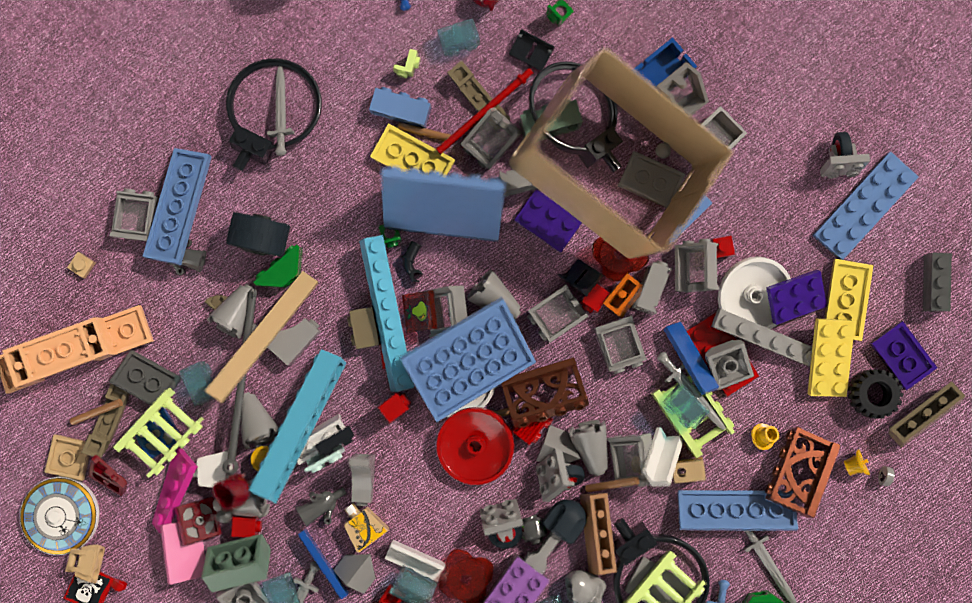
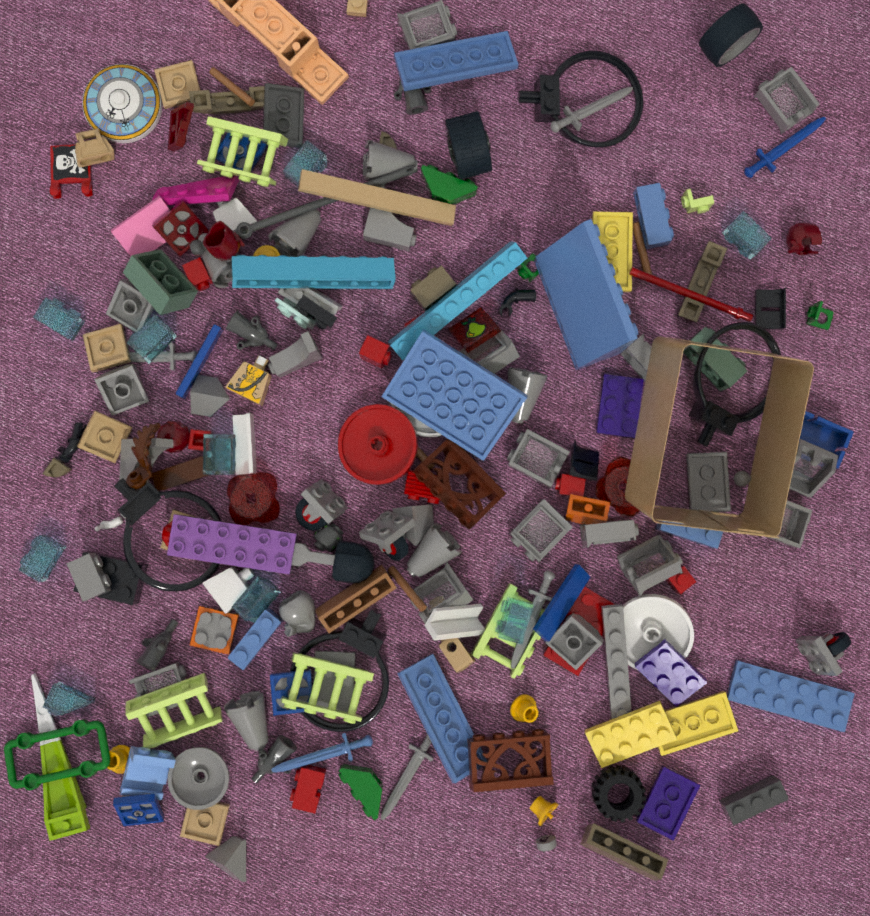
camera: 60 degrees right, 0 degrees up
(490, 138) = (668, 312): window -> none

